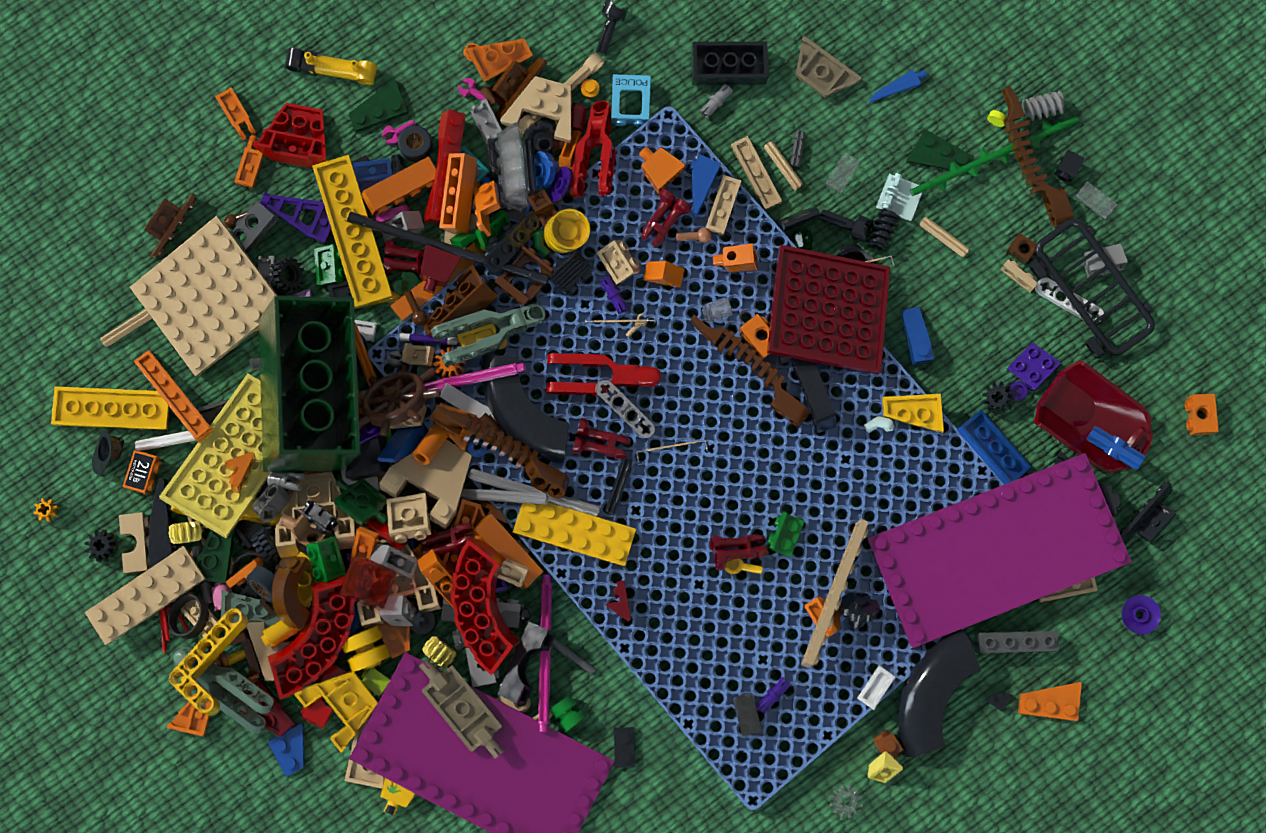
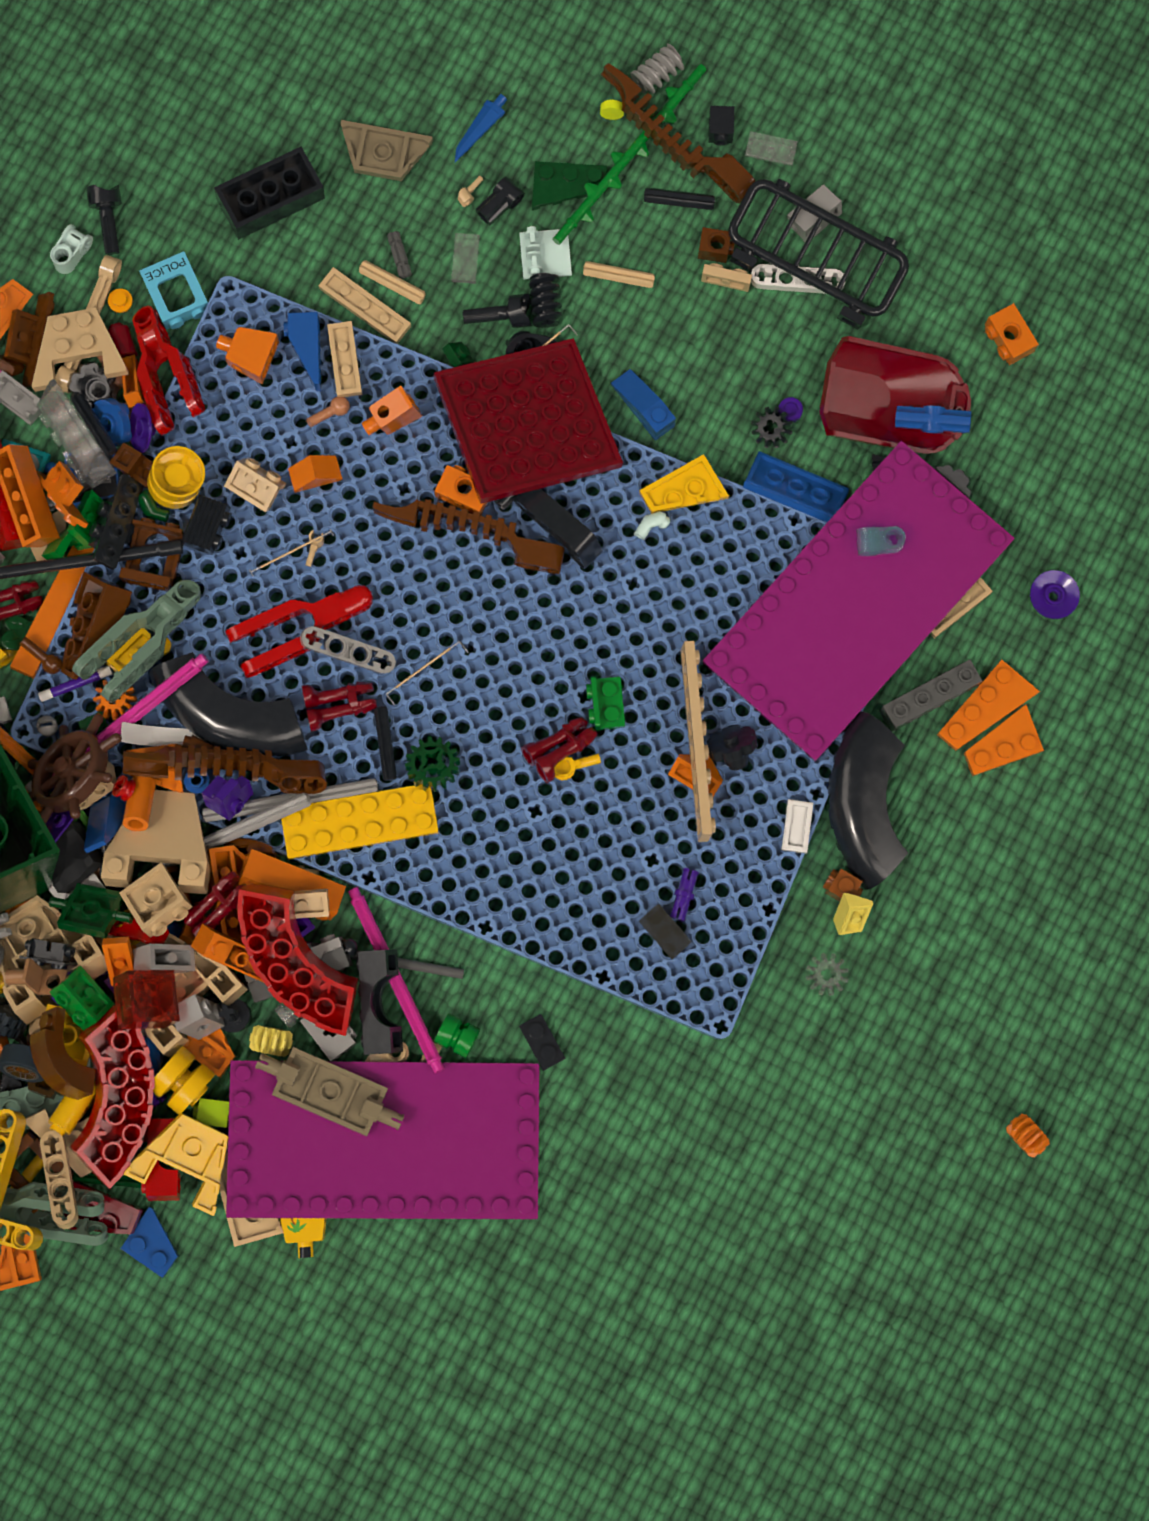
camera: 30 degrees left, 0 degrees up
(252, 676) = (55, 1180): none -> tan beam
(417, 355) = (72, 708): tan bracket -> none
(425, 428) = (124, 788): none -> red bush
(437, 268) = (43, 595): dark red torso -> none
(492, 161) = (47, 441): black axle -> none
(492, 469) = (227, 796): none -> dark purple brick
(576, 33) = (73, 245): none -> light aqua piece
(614, 294) = (268, 525): dark purple pin -> none
(620, 608) = (458, 881): dark red slope -> none
(642, 508) = (433, 774): none -> dark green gear
(679, 208) = (295, 387): dark red piece -> none
(716, 101) = (276, 245): light grey pin -> none
(717, 309) = (398, 483): clear brick -> none
(798, 218) = (440, 333): black slope -> none
(863, 130) = (465, 197): none -> tan hand
(891, 143) = (505, 196): none -> black piece
(999, 700) = (944, 771): black tile -> none
(1013, 204) = (678, 198): none -> black axle
(1031, 514) = (877, 540): none -> clear light blue piece
(1033, 366) = (794, 373): dark purple hinge -> none
(1057, 667) = (991, 701): none -> orange wing
(1152, 518) = (1013, 479): black bracket -> none

